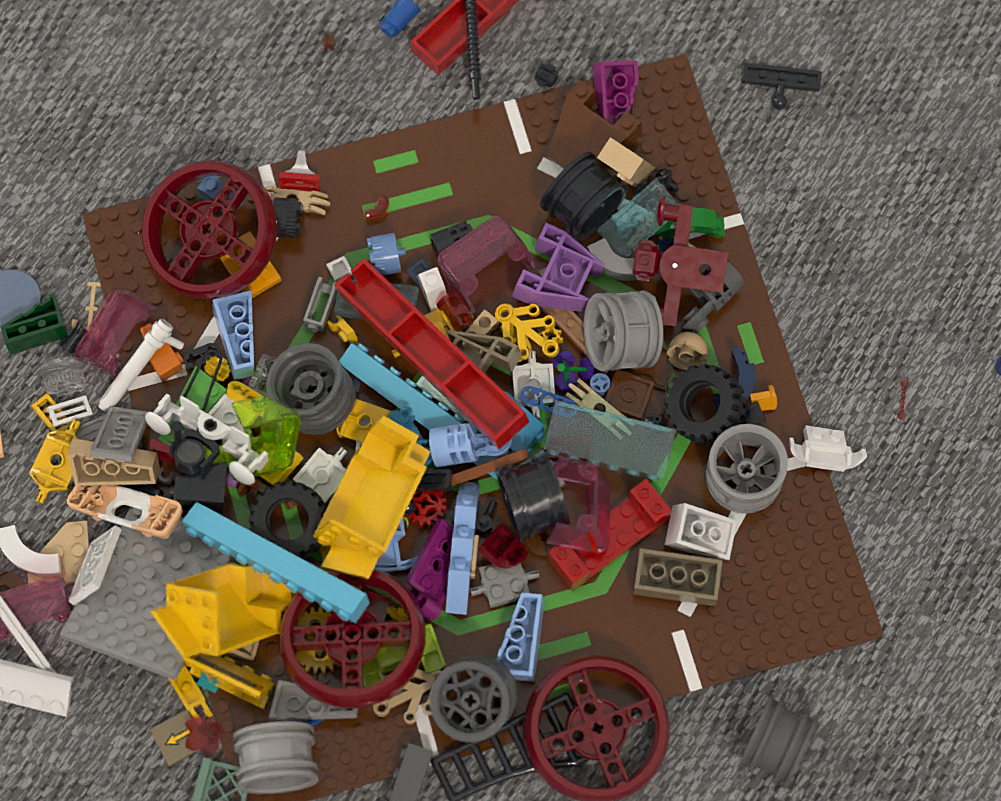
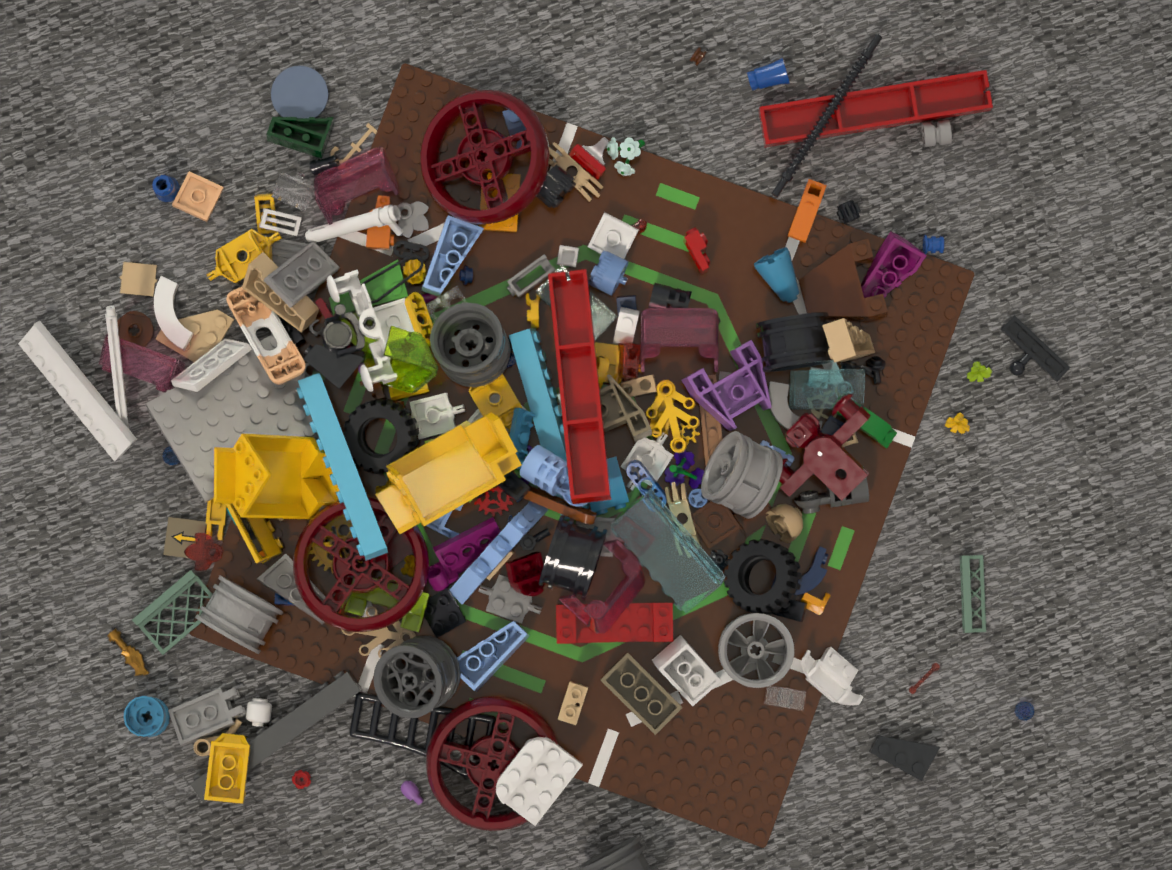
camera: 40 degrees right, 15 degrees up
(115, 675) = (170, 457): none -> tile
(185, 328) = (415, 219): none -> light grey plate
(264, 342) = (466, 275): none -> dark blue plate
(327, 146) = (628, 149): none -> light aqua plant
(364, 224) = (613, 236): none -> white tile
(440, 184) = (696, 245): none -> red plate
(455, 634) = (443, 613): none -> black hinge
(511, 94) = (807, 210): none -> orange slope
(529, 159) = (779, 274): none -> dark azure cone
(627, 631) = (574, 694): none -> tan window
(635, 53) = (933, 244): none -> blue bush
(644, 708) = (536, 778): none -> white plate
(752, 126) = (979, 372): none -> lime plant
(767, 177) = (958, 423): none -> yellow plant
(800, 493) = (784, 697): none -> clear brick
(883, 305) = (966, 593): none -> sand green fence
(937, 470) = (905, 754): none -> black wedge

